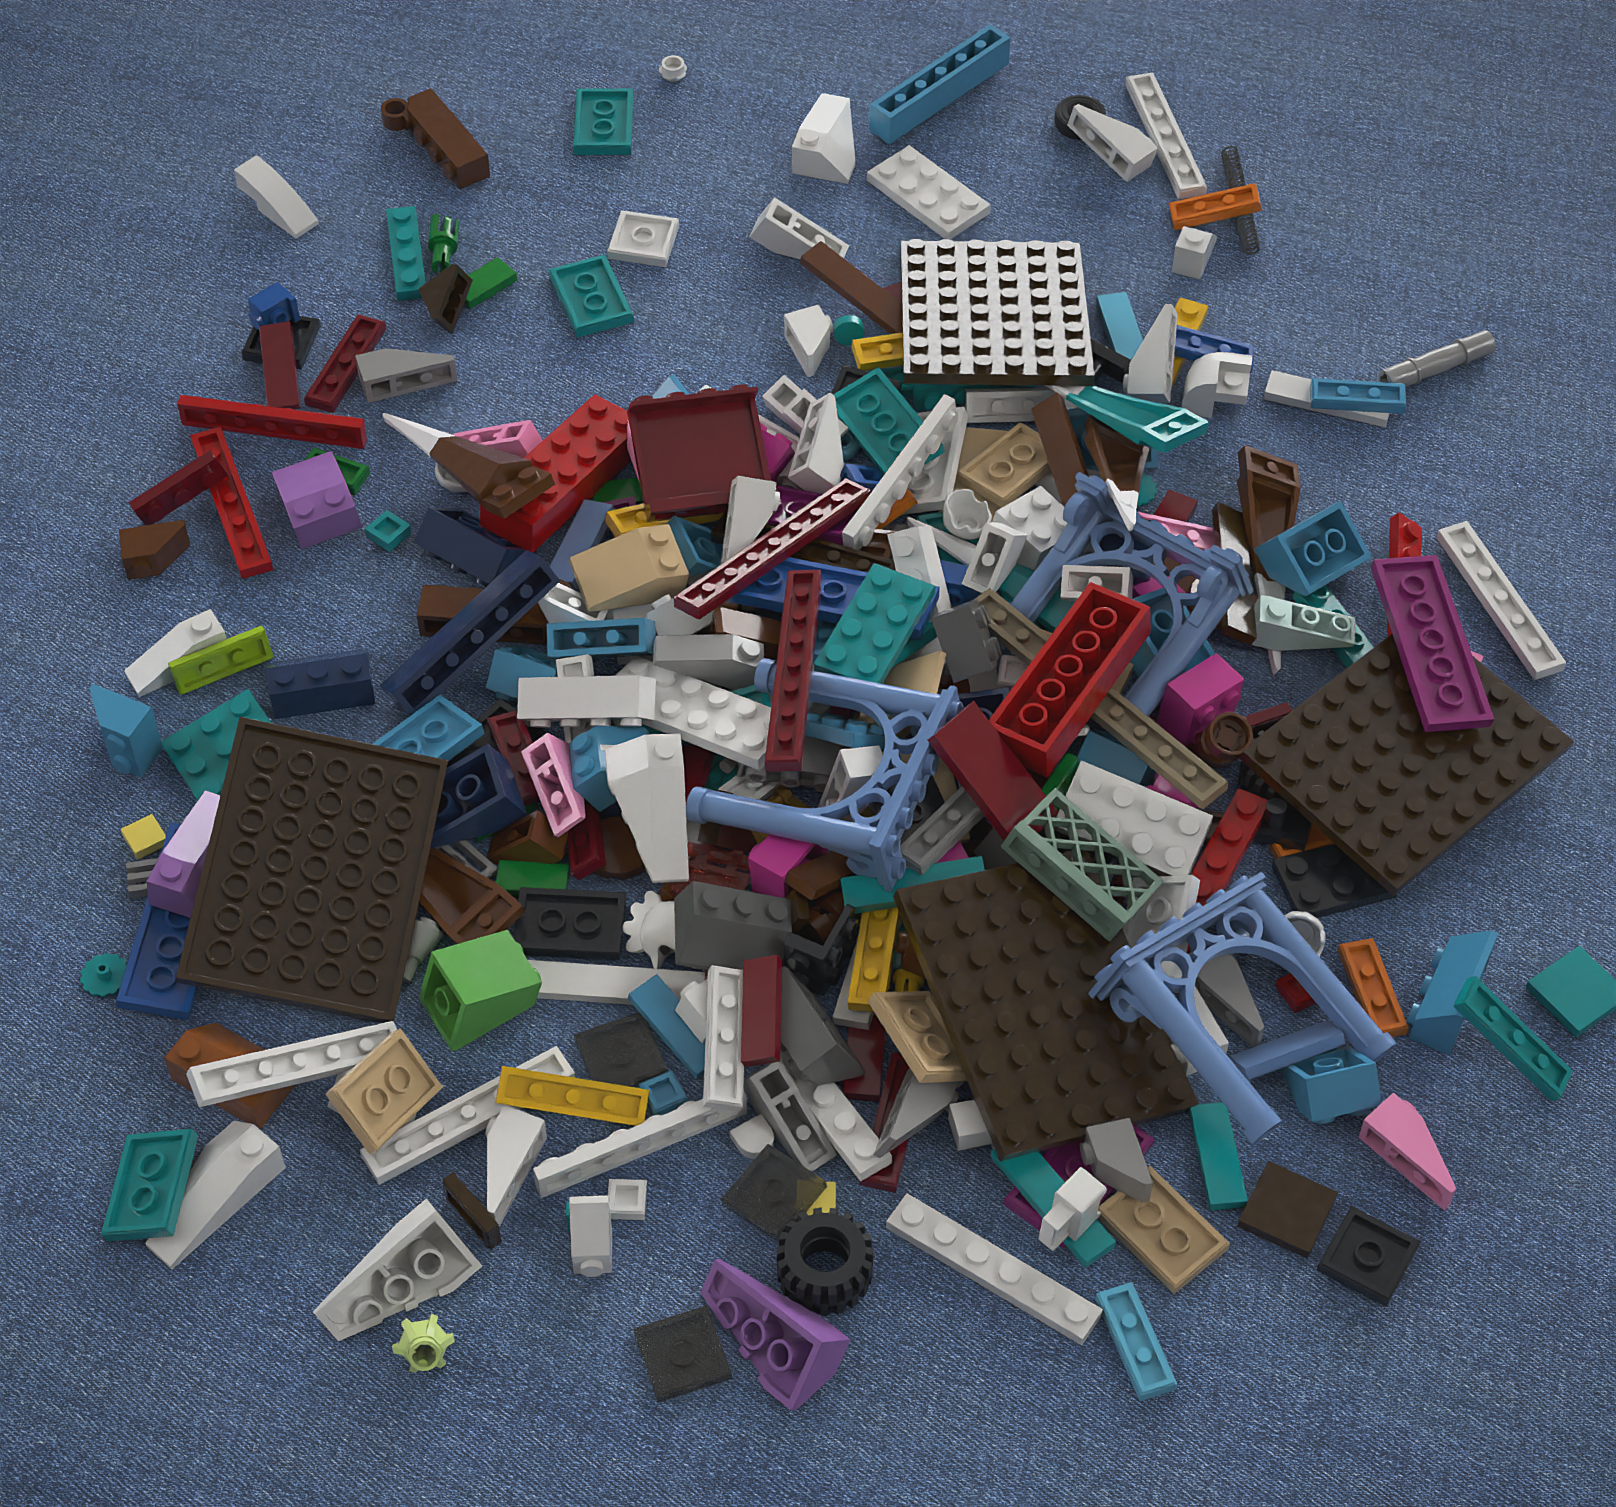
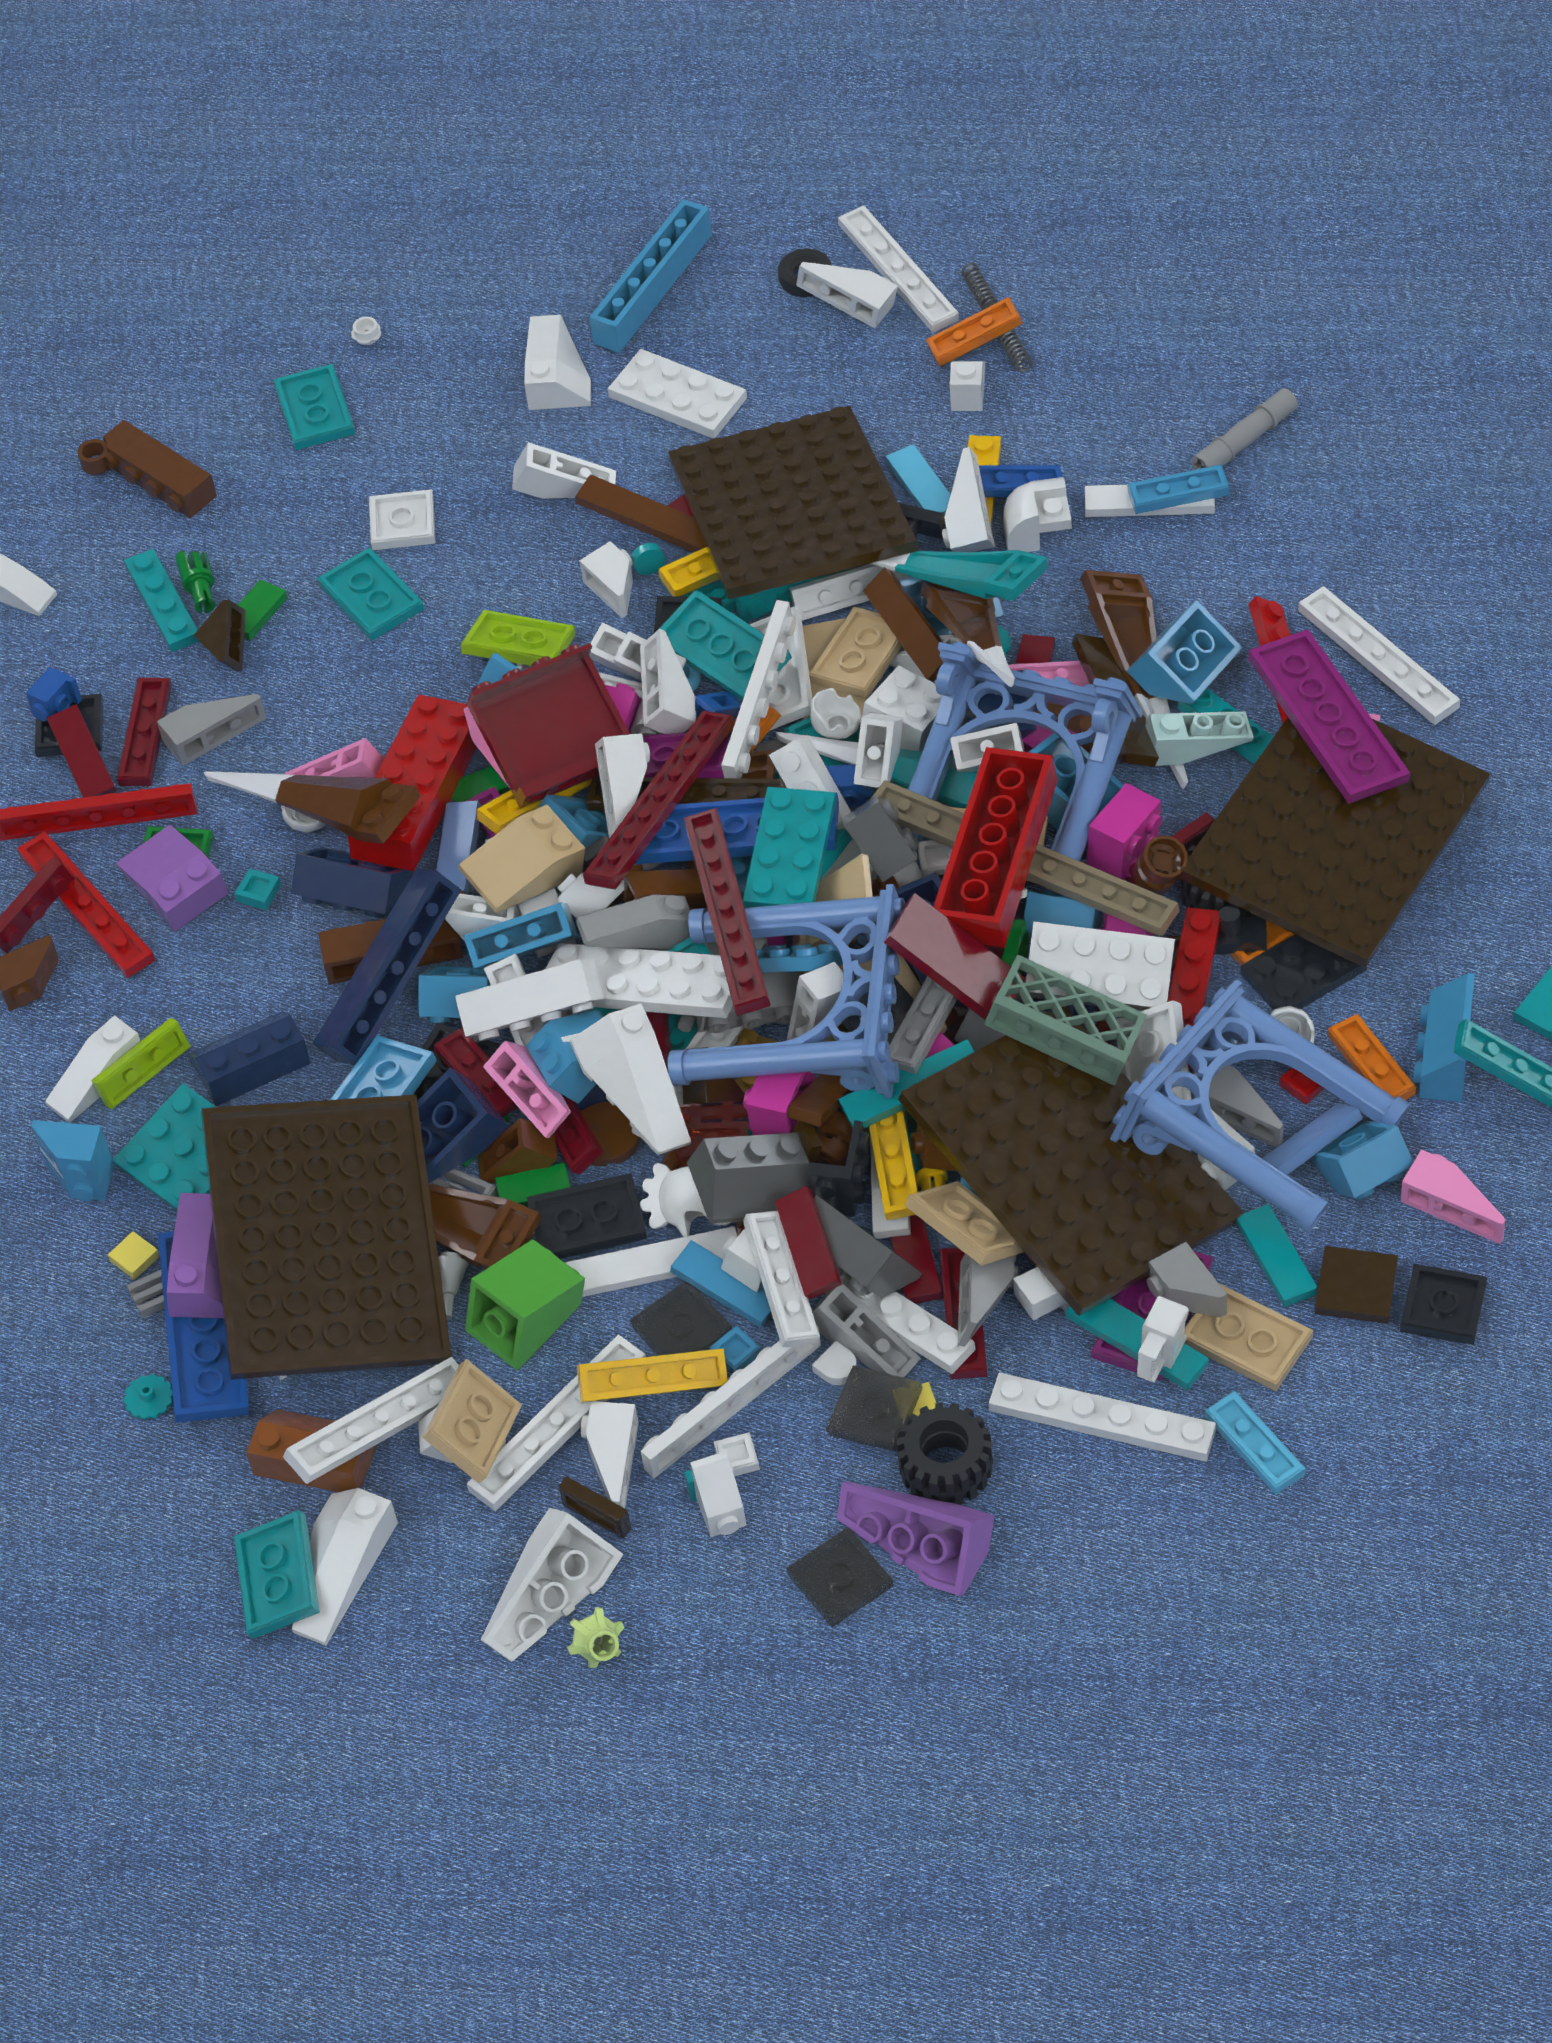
camera: 10 degrees left, 0 degrees up
(703, 367) = (516, 637): none -> lime tile

